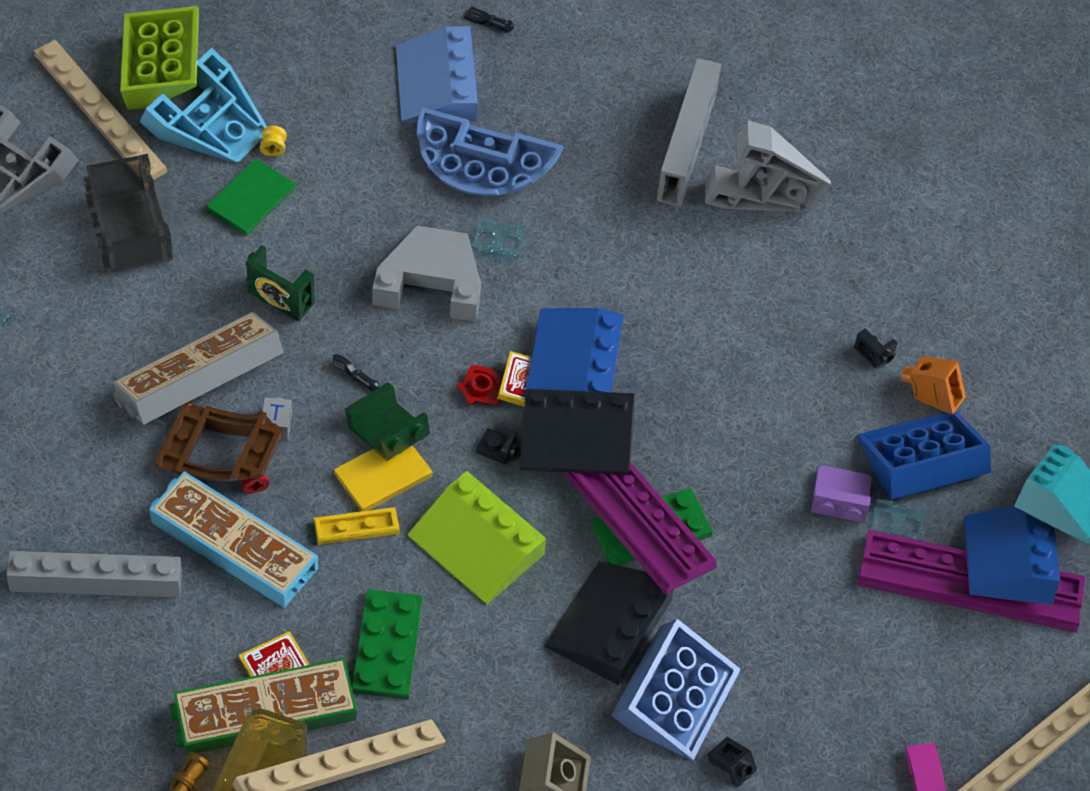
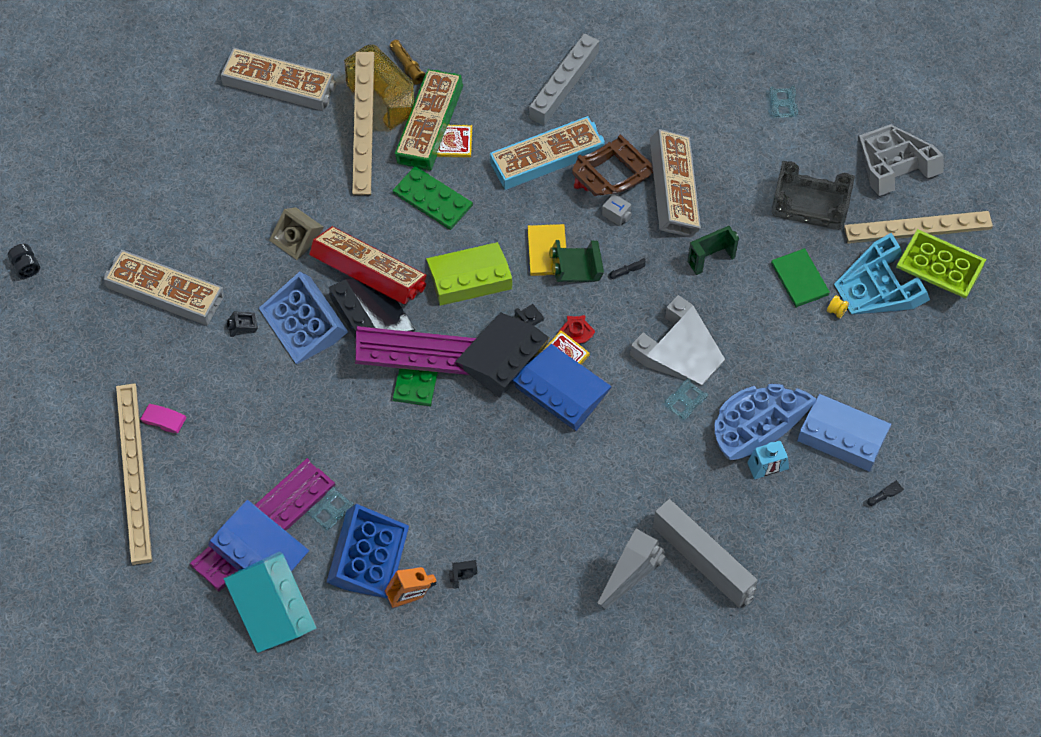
camera: 125 degrees right, 5 degrees up
(356, 526) = (519, 219): yellow tile -> none
(529, 119) = (770, 460): none -> medium azure torso
(553, 650) = (368, 265): none -> brick
(841, 494) = (369, 484): medium lavender bracket -> none

